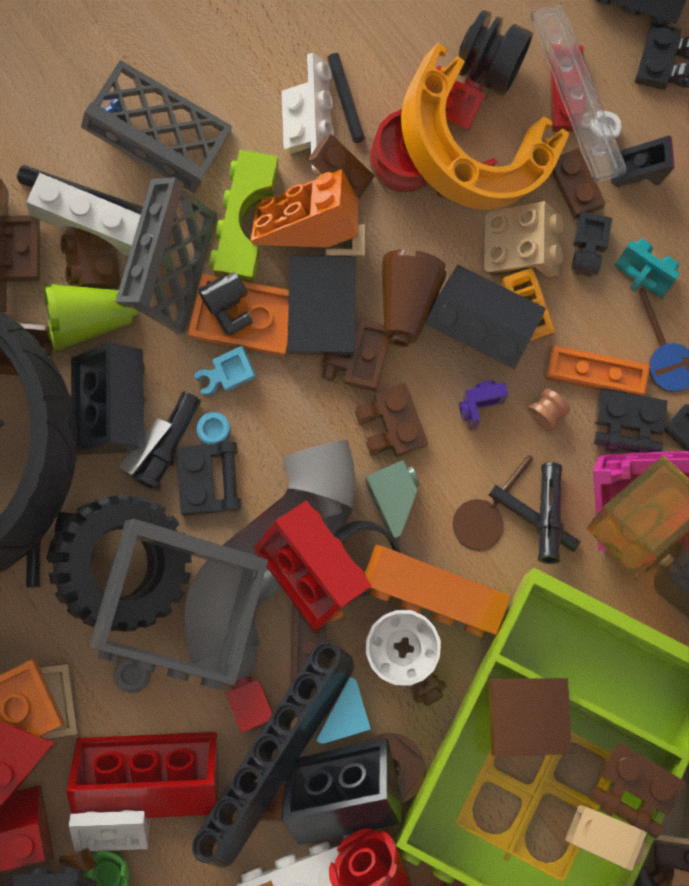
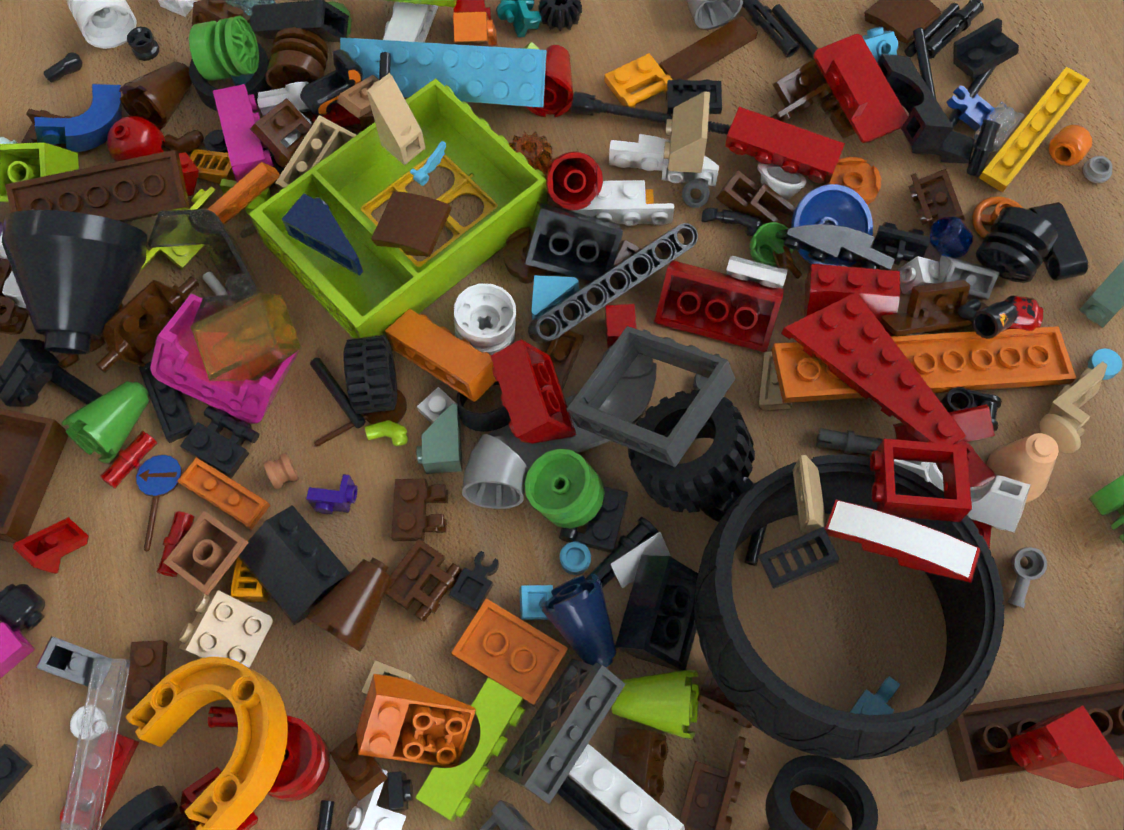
camera: 155 degrees left, 10 degrees down
(184, 361) = (582, 619): none -> dark blue cone
(223, 295) = (521, 666): black piece -> none
(242, 479) = (564, 488): none -> bright green wheel
(296, 163) = (399, 790): none -> black plate
(302, 369) = (473, 585): none -> black plate
(321, 305) = (434, 628): black tile -> none
(418, 540) = (435, 404): none -> white plate
(459, 496) = (389, 429): none -> lime arm
(501, 535) = (370, 374): none -> black tyre
(549, 791) = (421, 176): none -> medium azure piece
(550, 547) = (316, 398): black pin -> none
(571, 294) = (206, 553): none -> nougat slope
(592, 235) = (160, 615): black plate -> none
(615, 304) = (180, 526): none -> red pin
(631, 667) = (316, 227): none -> dark blue slope
(642, 779) = (352, 164): reddish brown plate -> none
(647, 269) = (134, 563): teal hips -> none

